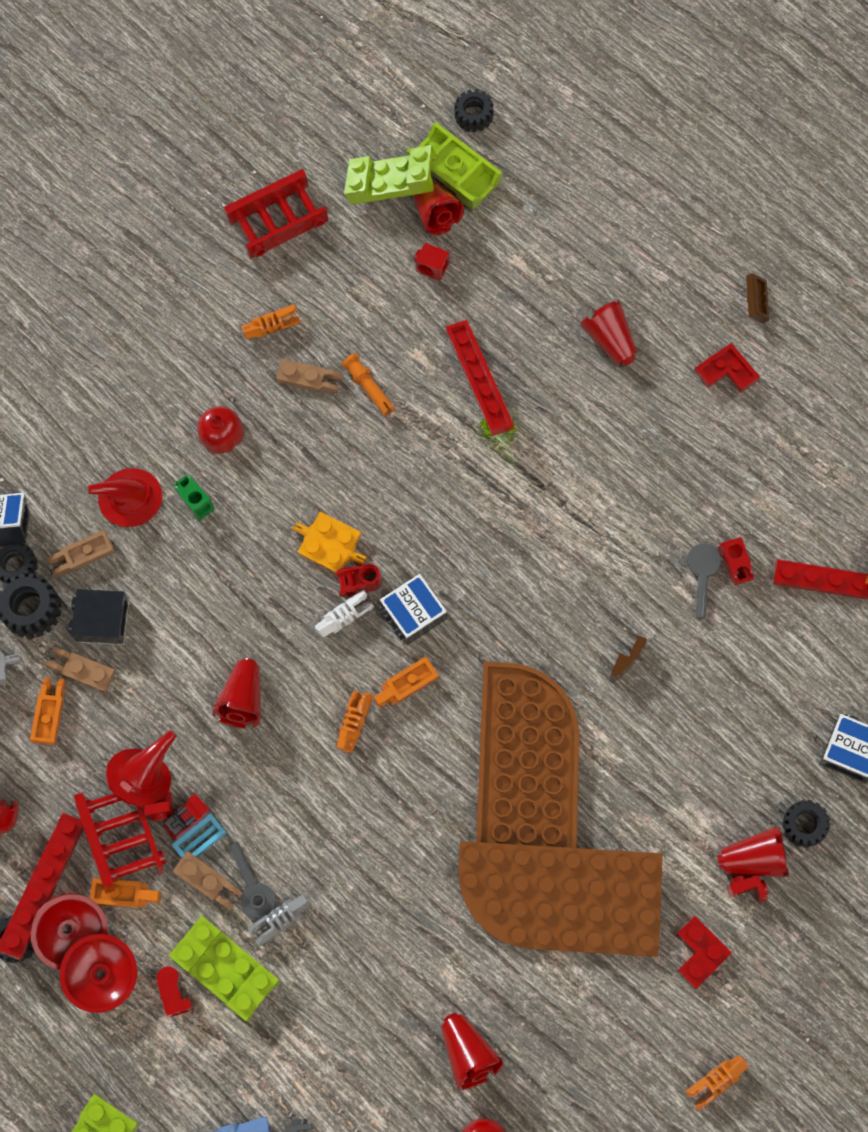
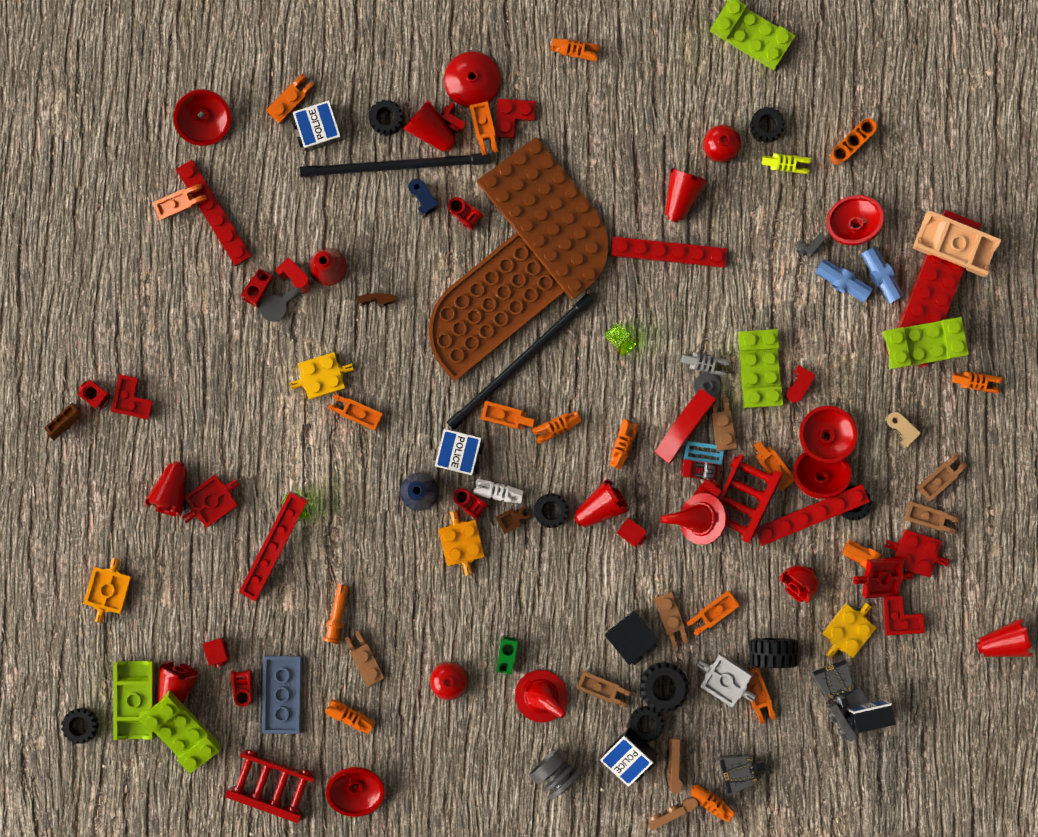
camera: 135 degrees left, 15 degrees up
(45, 1057) = (902, 427): none -> tan leg
(50, 445) = (554, 773): none -> flat silver wheel
(190, 702) = (632, 533): none -> red brick
(203, 272) = (355, 791): none -> red dish
(239, 841) = (684, 426): none -> red slope
(275, 634) = (563, 510): none -> black tyre
(279, 768) = (623, 443): none -> orange hinge
(307, 603) = (510, 520): none -> reddish brown plate
(345, 286) = (281, 694): none -> sand blue tile
(380, 856) = (620, 339): none -> clear neon green bracket
(384, 260) = (242, 685): none -> red piece
(411, 545) = (425, 498): none -> dark blue cone
(422, 985) = (668, 252): none -> red plate
(447, 844) = (461, 415): none -> black piece
(535, 552) = (358, 412): none -> orange hinge
(570, 219) = (107, 590): none -> light orange plate
(570, 362) = (211, 501): none -> red plate
(598, 550) = (321, 376): none -> yellow plate
(639, 815) = (466, 213): none -> red piece
(689, 872) = (473, 159): none -> black piece
(691, 790) = (420, 191): none -> dark blue leg
(701, 642) = (330, 272): none -> red cone
(711, 603) = (299, 279): none -> red leg
(714, 911) = (483, 125): none -> orange hinge
(755, 349) = (101, 397): none -> red brick
(757, 951) = (474, 91): none -> red dish

